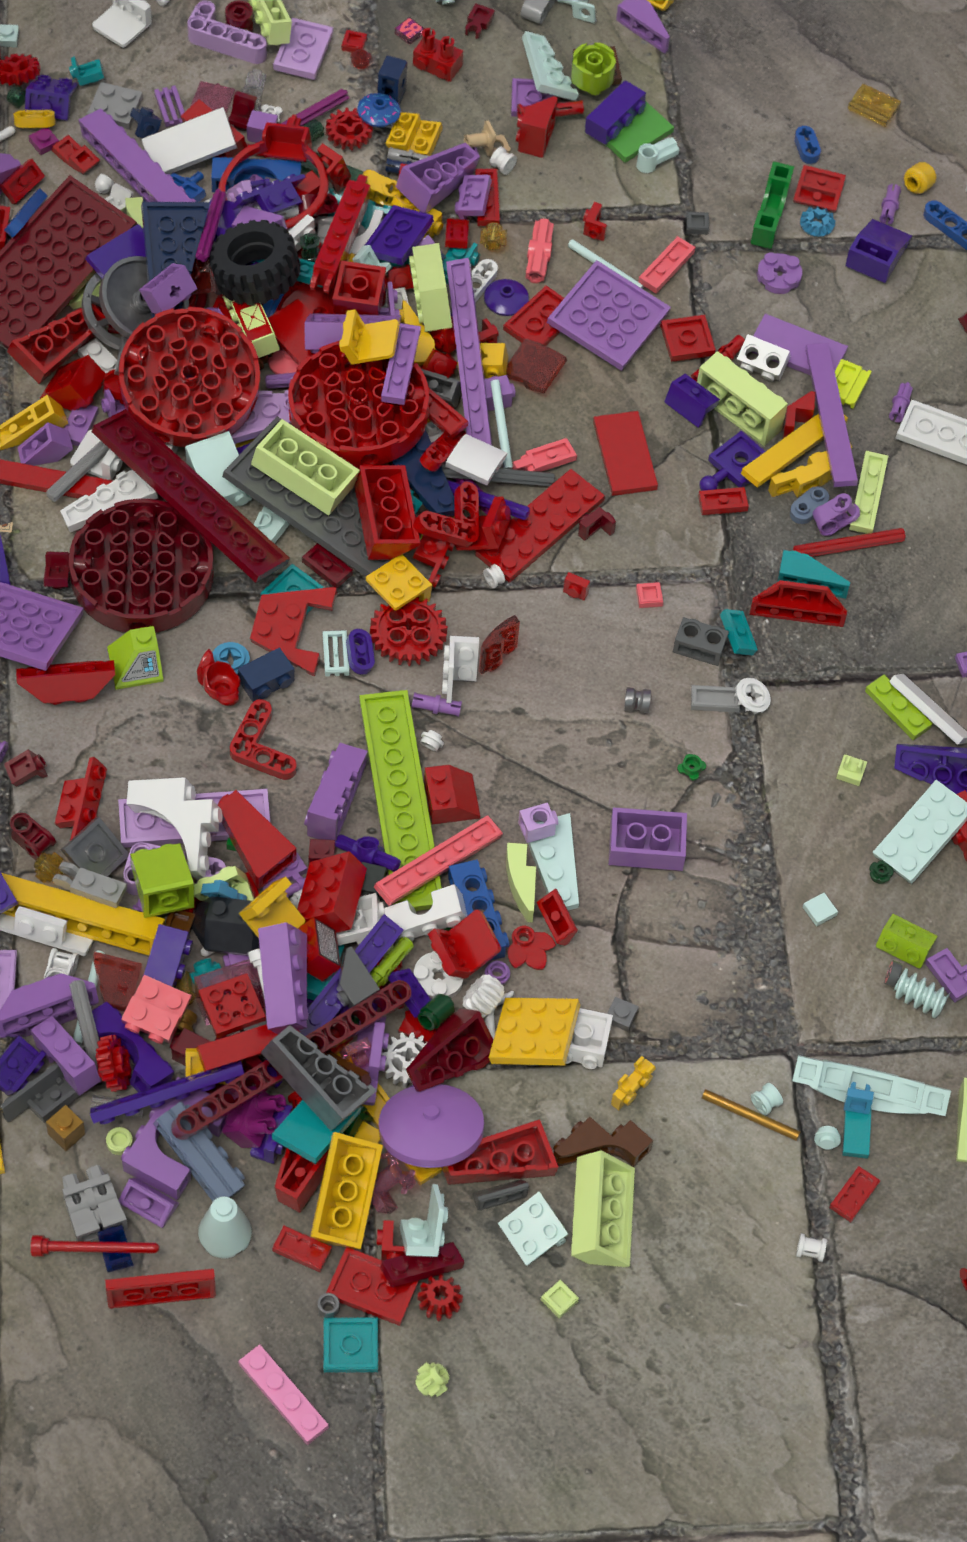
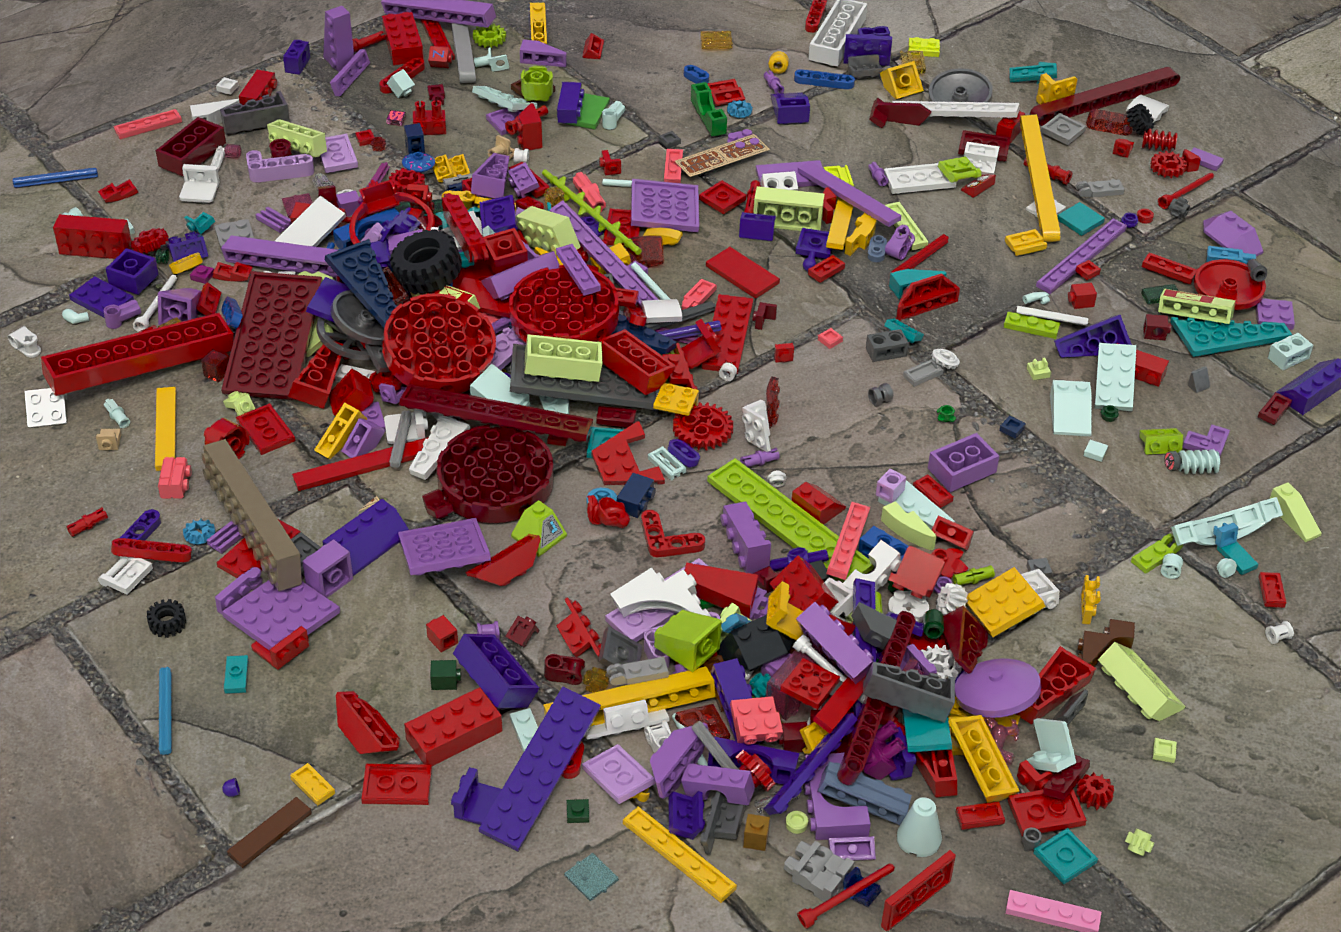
camera: 30 degrees left, 15 degrees down
(147, 121) = (270, 232): dark blue bracket -> none
(168, 288) = (385, 296): medium lavender brick -> none
(211, 225) = (381, 259): magenta axle -> none
(368, 341) = (548, 264): yellow bracket -> none
(459, 523) = (685, 347): red beam -> none
(518, 282) = (595, 213): none -> lime plant
(522, 976) = (974, 575): none -> lime pin
(533, 1228) = (1110, 717): light aqua hinge -> none
(577, 356) = (669, 235): none -> yellow slope
(588, 854) = (933, 491): none -> red plate
(719, 41) = (593, 47): none -> red slope
(732, 279) = (720, 156): none -> sticker
(750, 825) = (1012, 427): none -> dark blue plate
(751, 1115) = (1169, 581): pearl gold bar -> none
(758, 1073) = (1154, 554): none -> lime hinge
(838, 841) = (1071, 407): none -> light aqua slope
(938, 672) = (1042, 296): none -> light aqua arm

